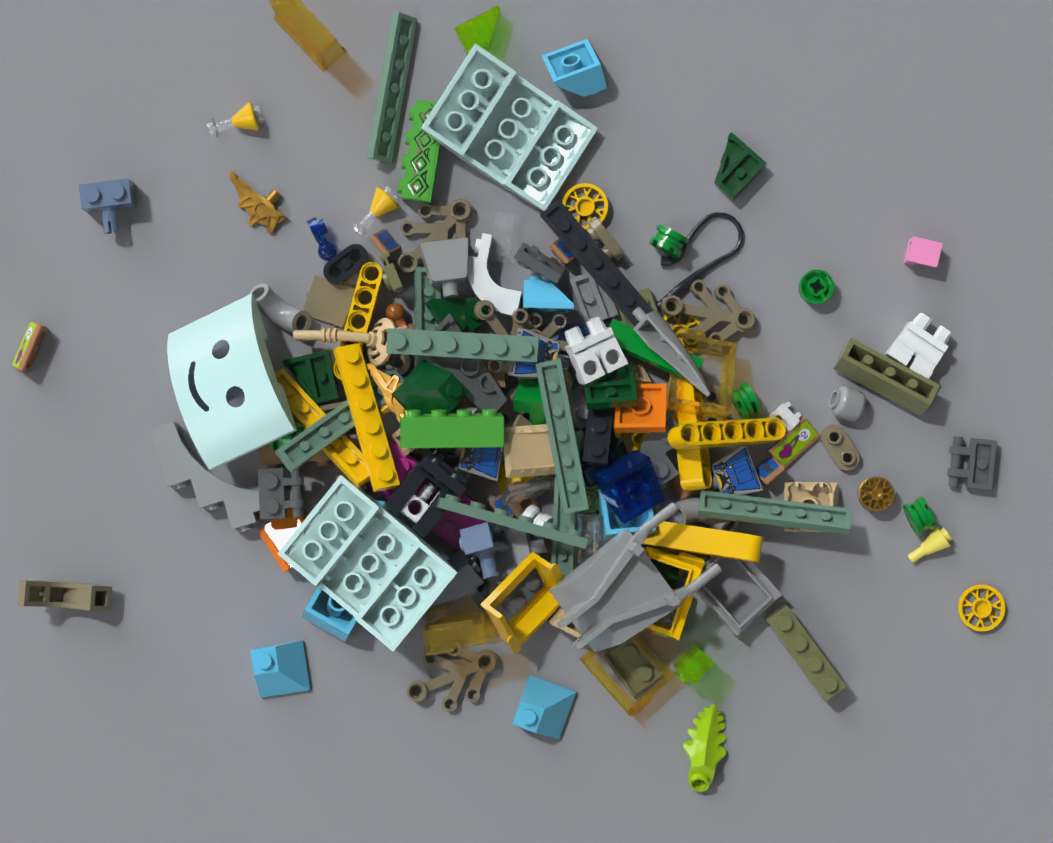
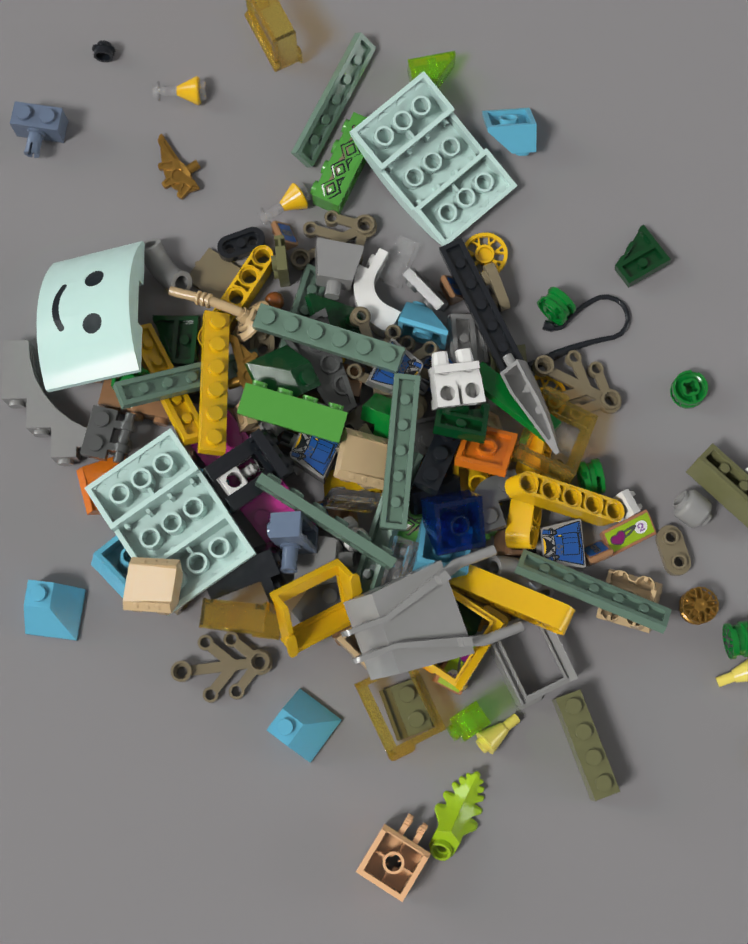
camera: 15 degrees right, 10 degrees down
(146, 100) = (103, 51): none -> black plate
(326, 249) = (226, 205): clear blue plate -> none
(372, 629) = (153, 585): none -> tan slope
(655, 789) = (390, 843): none -> light nougat hinge
(720, 667) = (492, 737): none -> light yellow cone

